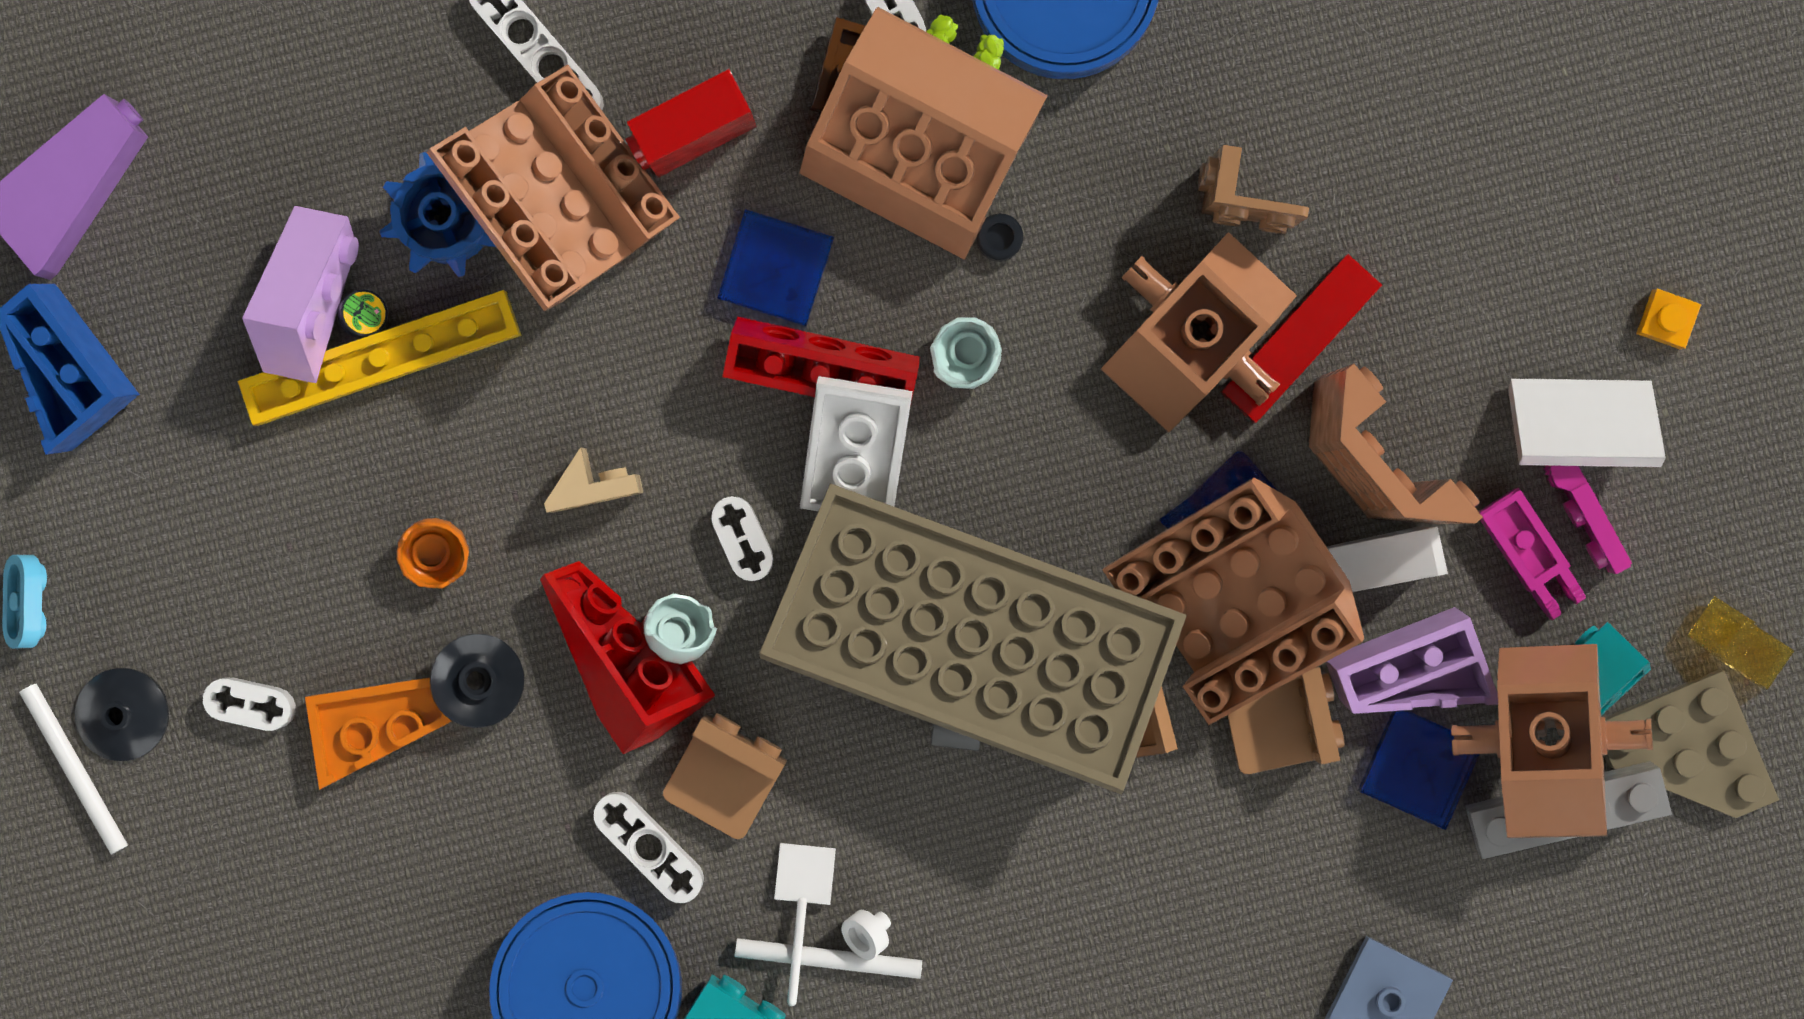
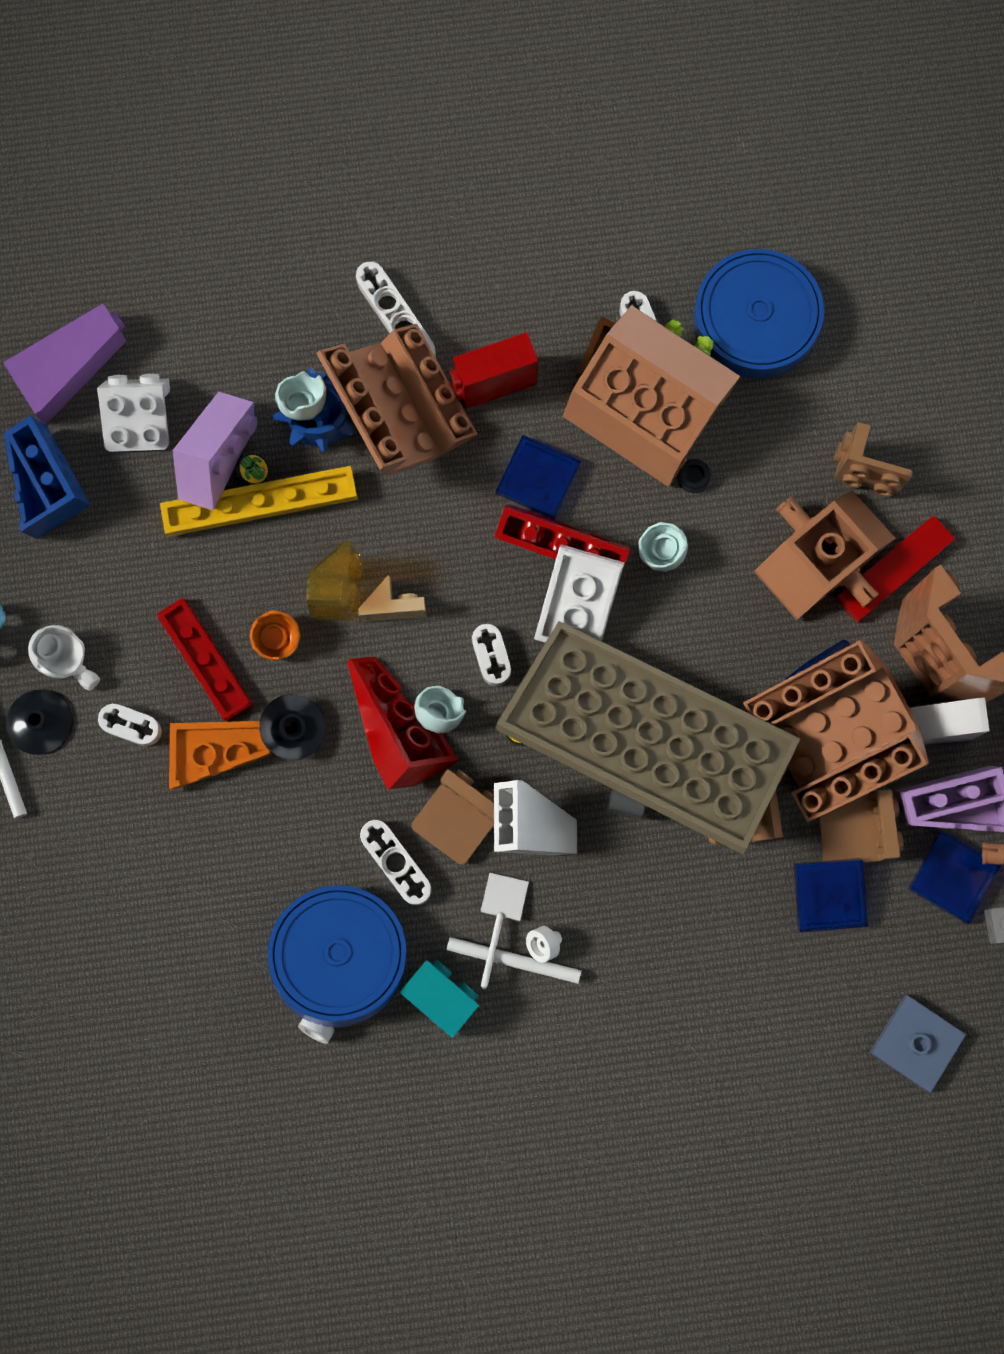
camera: 10 degrees right, 10 degrees down
(134, 621) = (60, 654): none -> white hair
(177, 248) = (134, 413): none -> white bracket
(339, 596) = (205, 660): none -> red tile
(414, 209) = (301, 396): none -> light aqua hair
(504, 472) = (333, 585): none -> clear yellow slope
(826, 779) = (530, 822): none -> white slope
(1252, 815) = (830, 894): none -> clear blue tile

